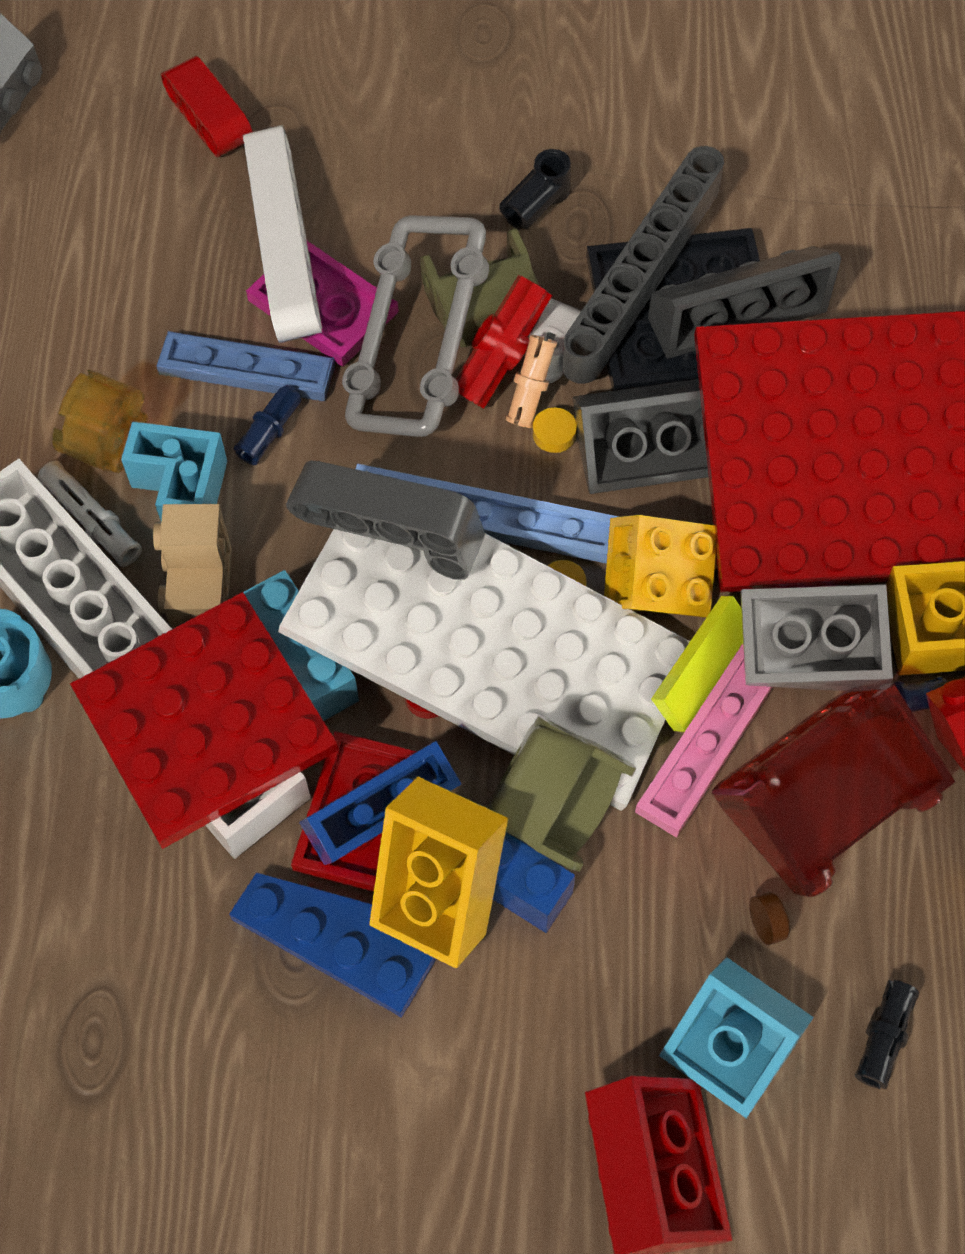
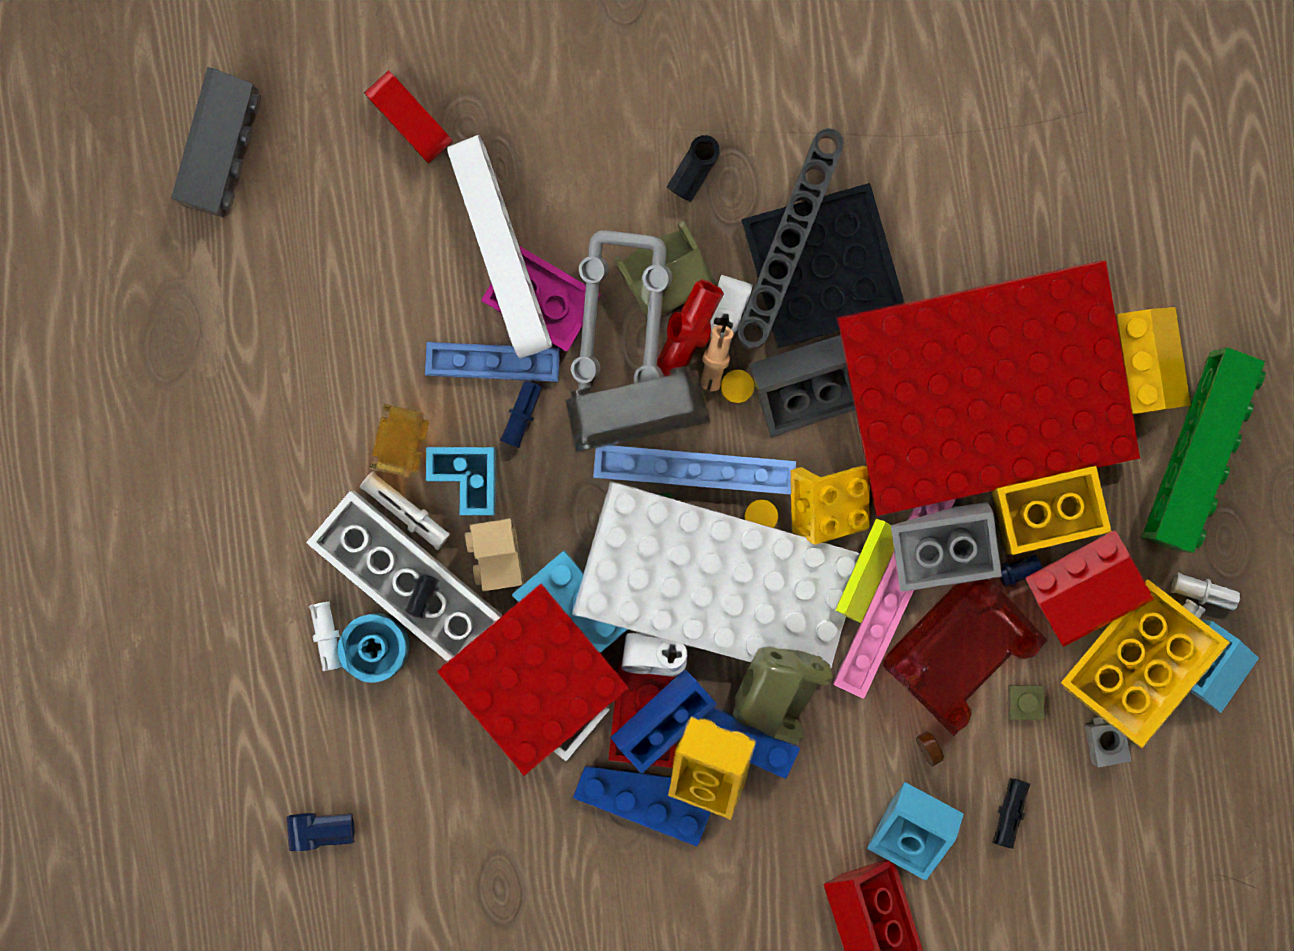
camera: 15 degrees left, 25 degrees up
(76, 585) = (421, 595): none -> black pin
(380, 720) = (649, 655): none -> white piece
(391, 511) = (635, 526): dark grey beam -> none
(417, 403) = (637, 410): none -> clear smoke windscreen
(757, 292) = (869, 265): dark grey slope -> none
(917, 877) = (1026, 702): none -> olive plate

